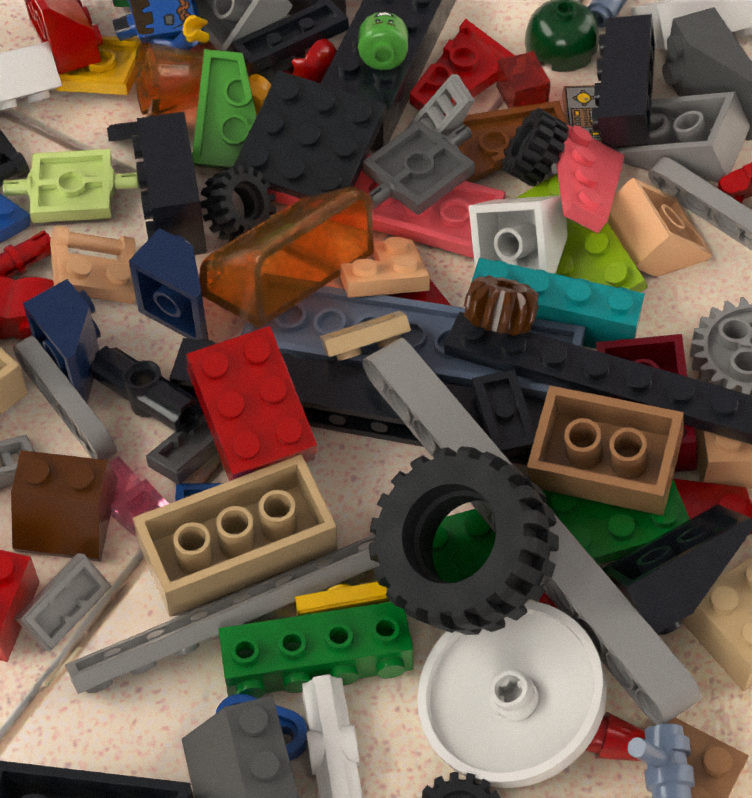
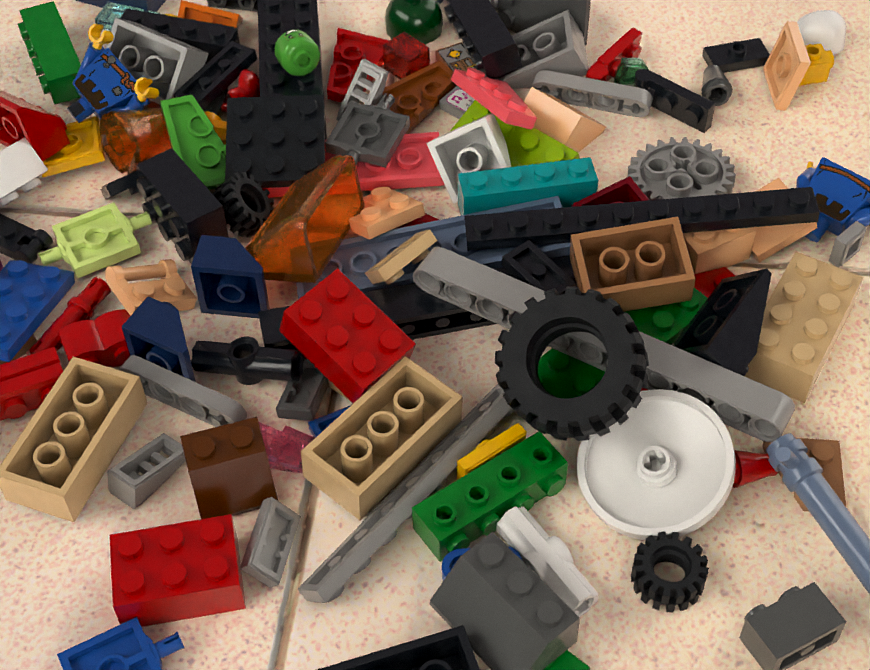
camera: 25 degrees left, 5 degrees down
(501, 305) = (499, 196): reddish brown gear -> none
(535, 147) = (447, 91): black tyre -> none

